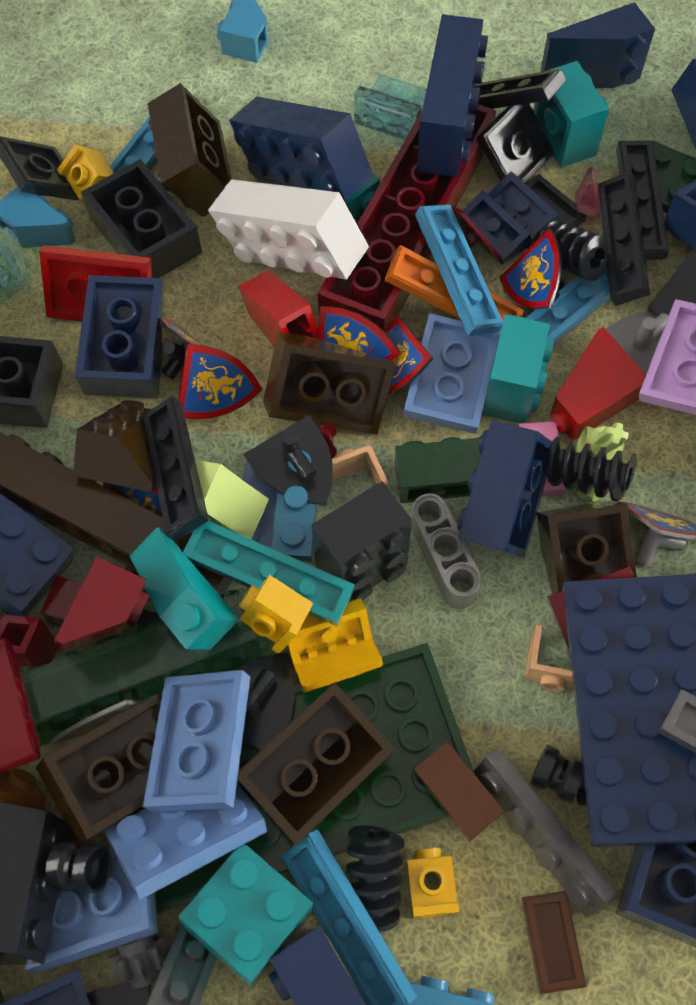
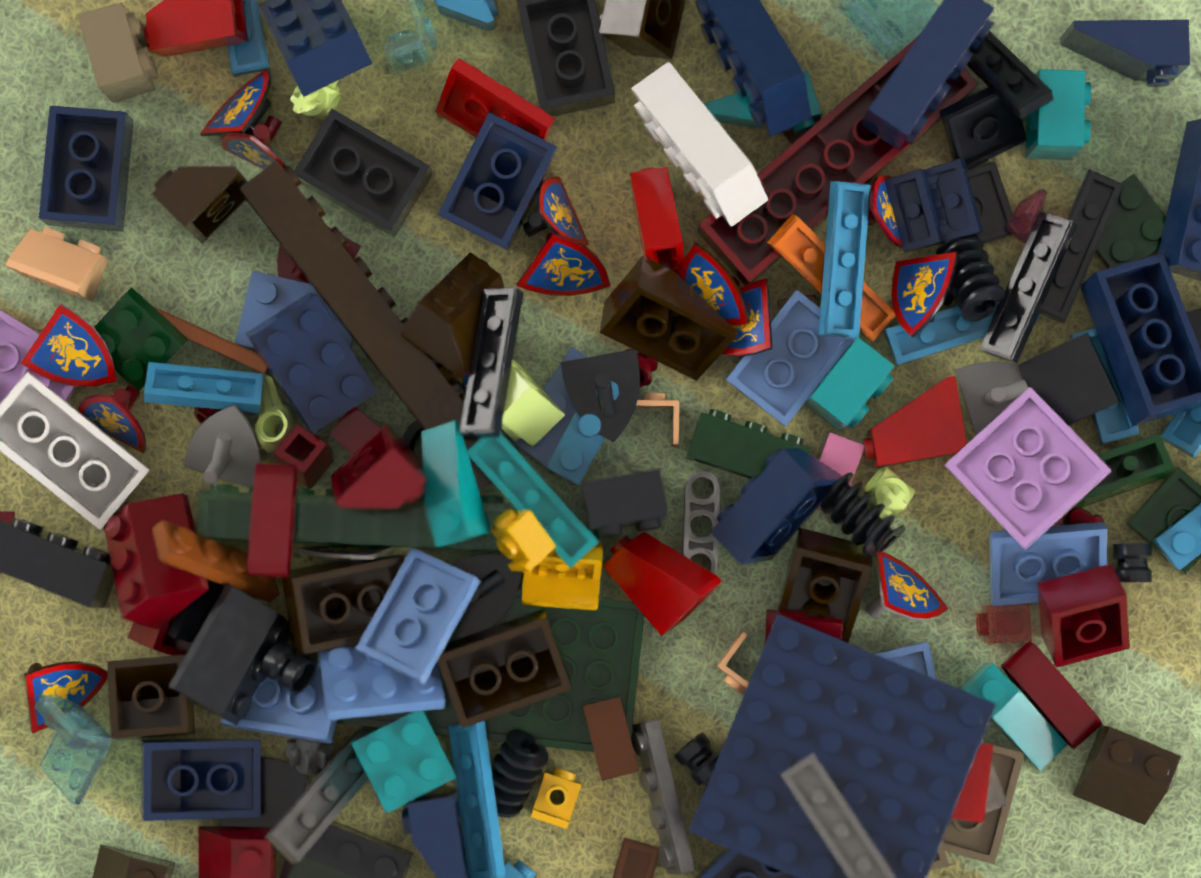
camera: 20 degrees right, 20 degrees up
(432, 610) = (659, 580): none -> red slope

